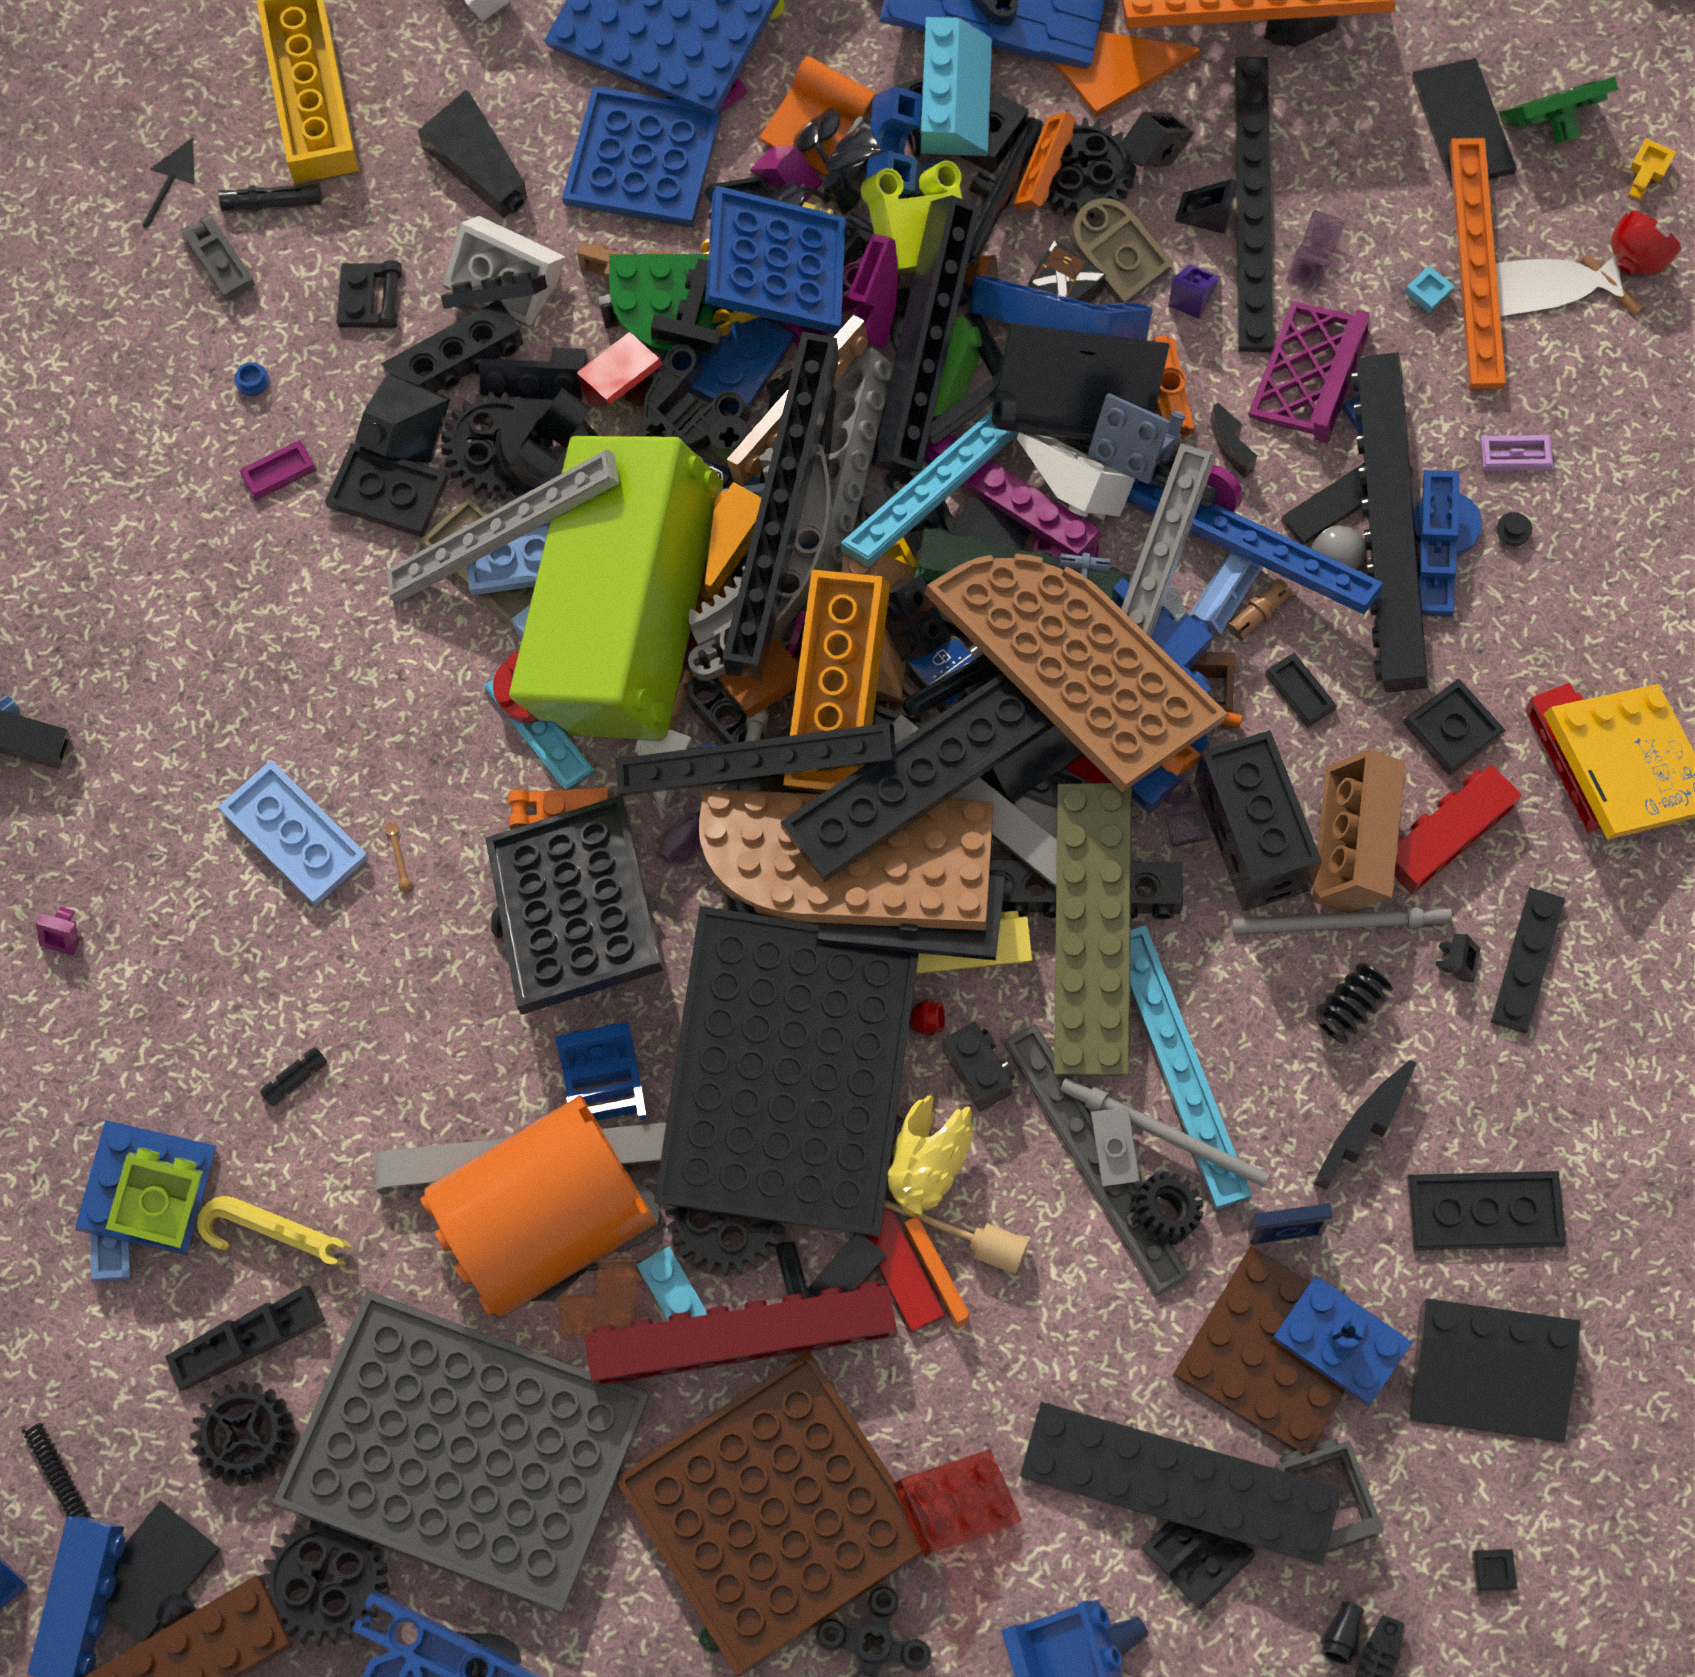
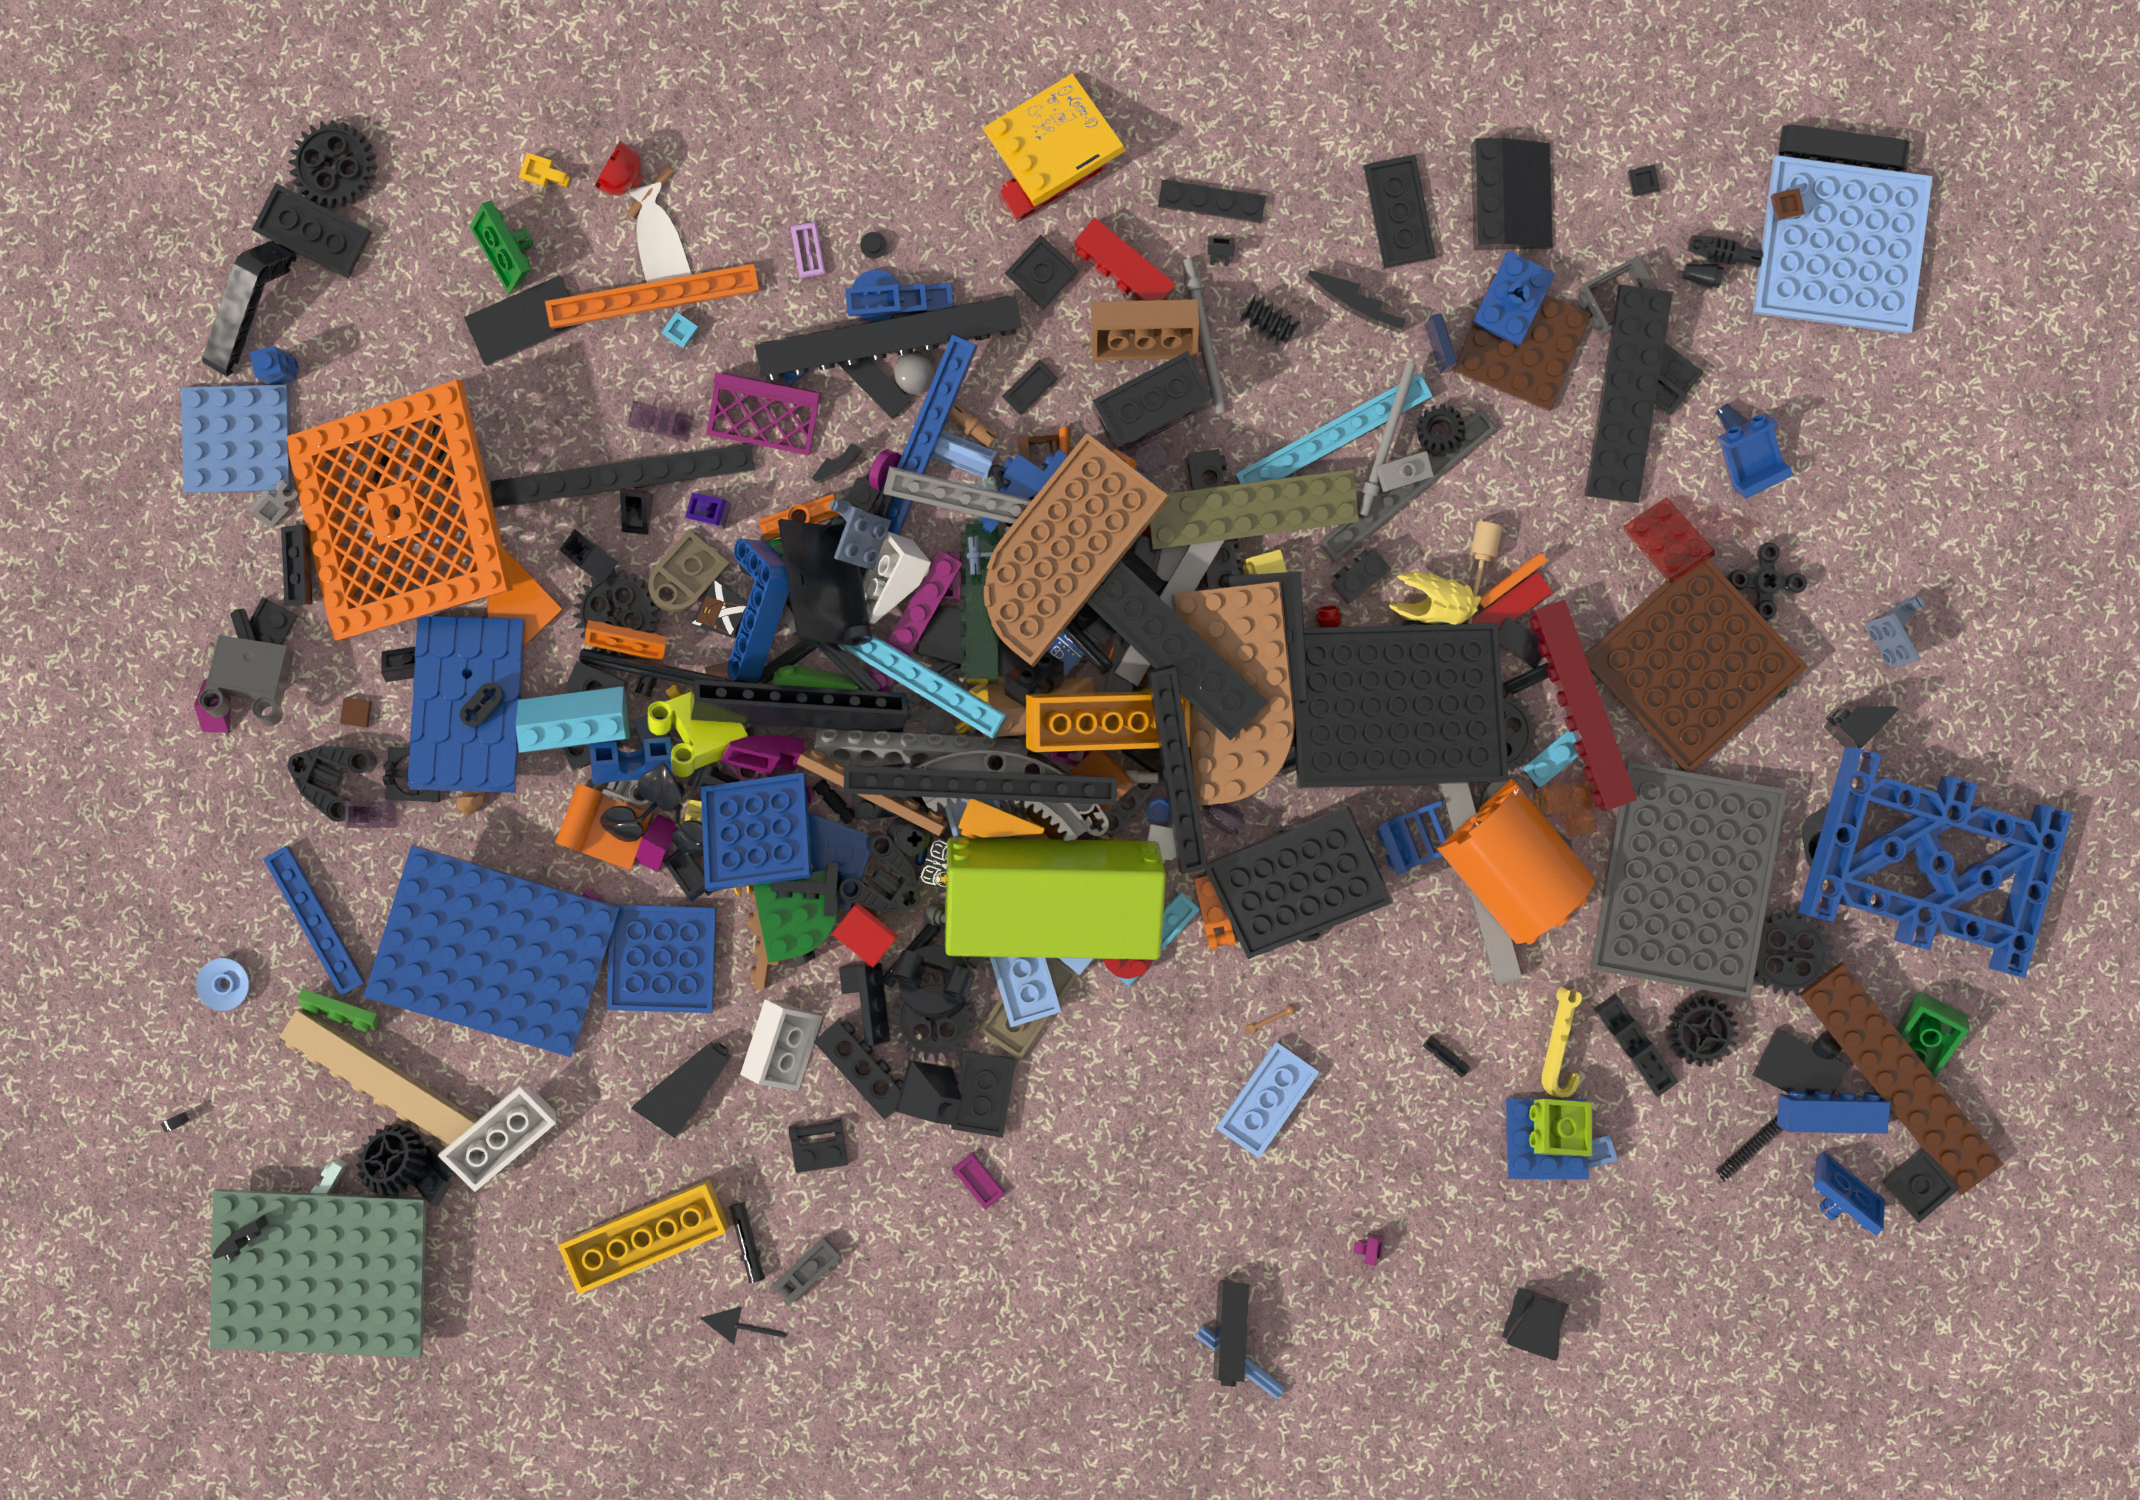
camera: 100 degrees left, 20 degrees up
(251, 379) = (906, 1218): blue plate -> none
(493, 290) = (808, 1047): black plate -> none
(503, 526) = (1020, 993): light grey tile -> none

